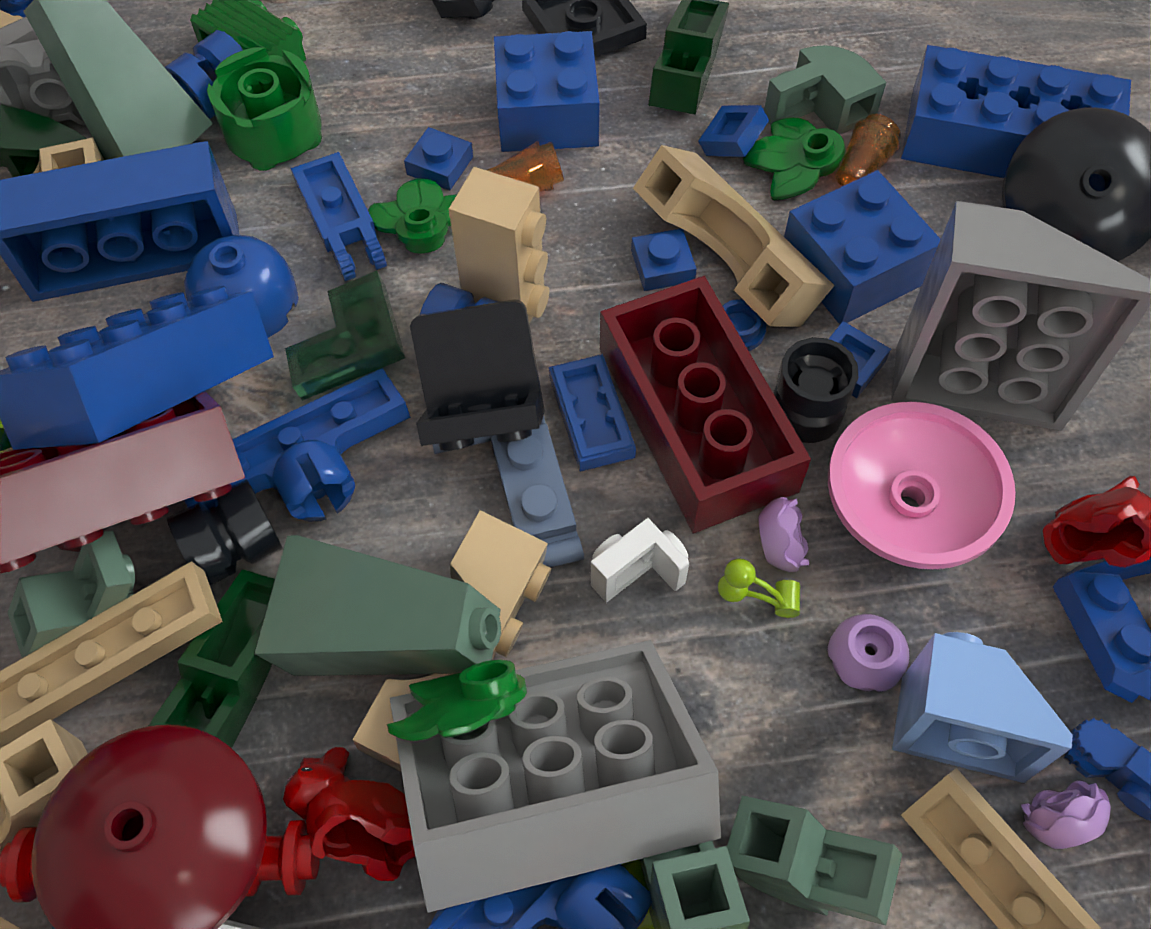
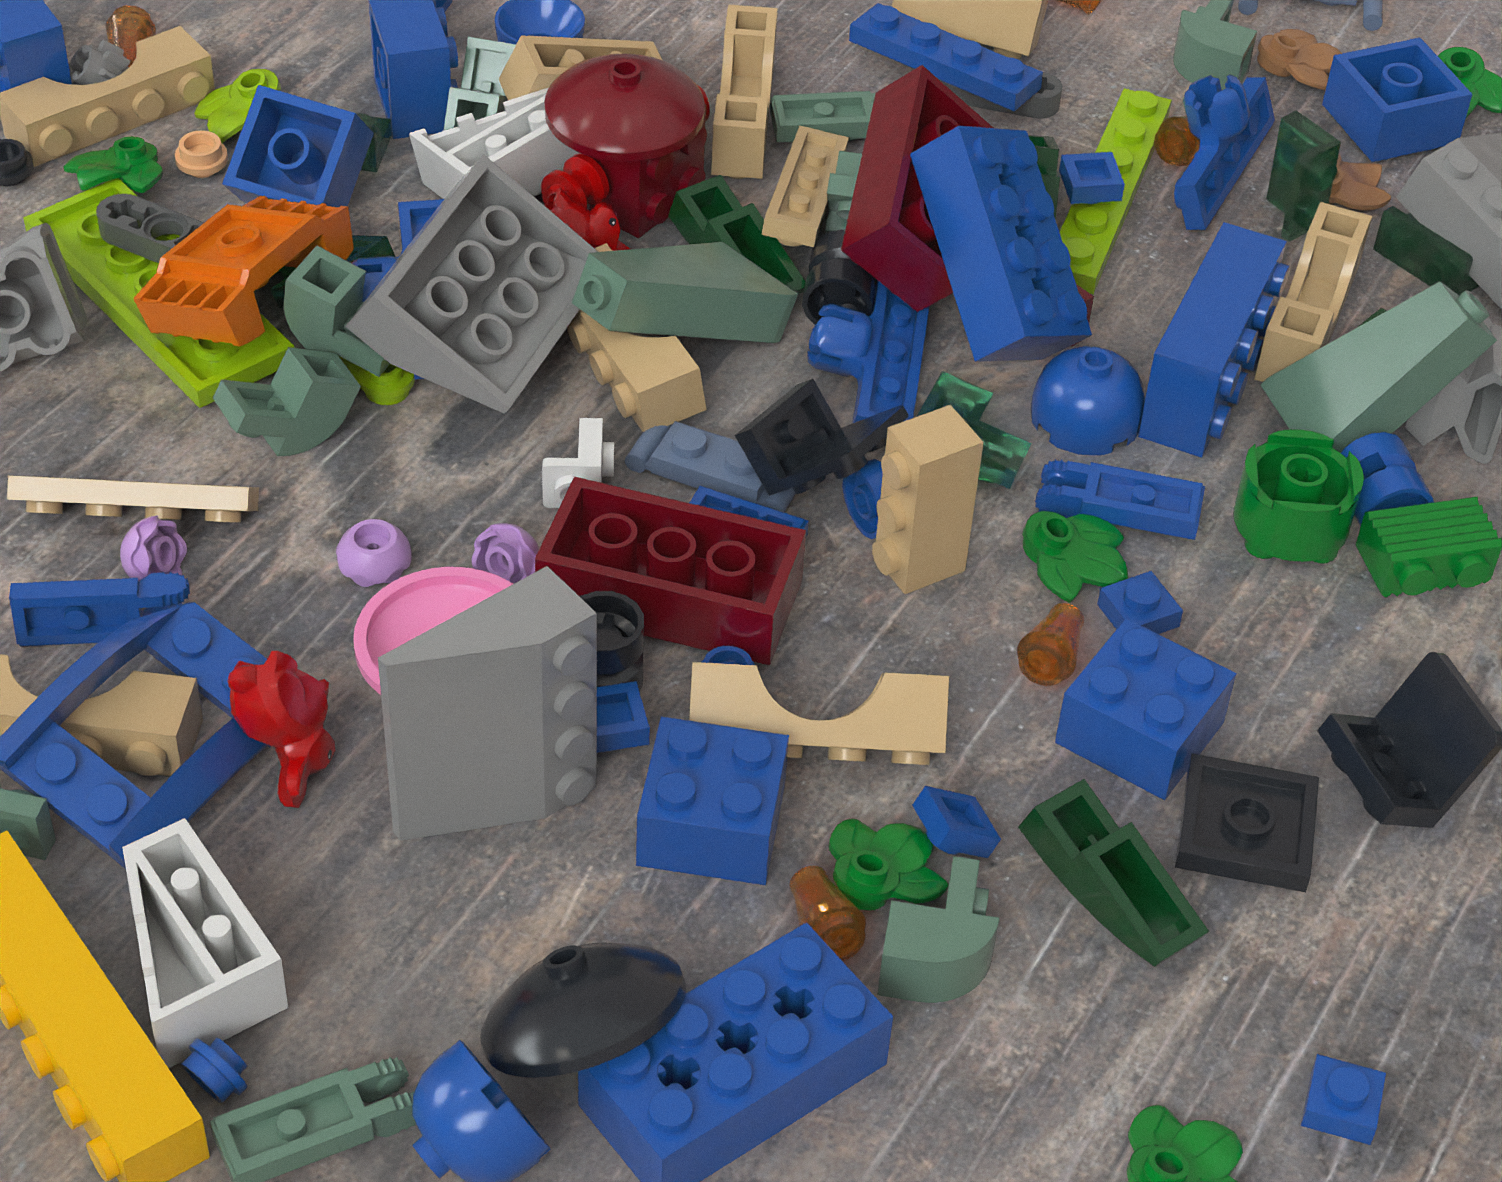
camera: 125 degrees right, 15 degrees down
(462, 701) = (553, 252): green plate -> none
(663, 259) = (851, 679): blue plate -> none
(741, 574) = (503, 494): lime piece -> none
(976, 711) = (263, 526): light blue slope -> none

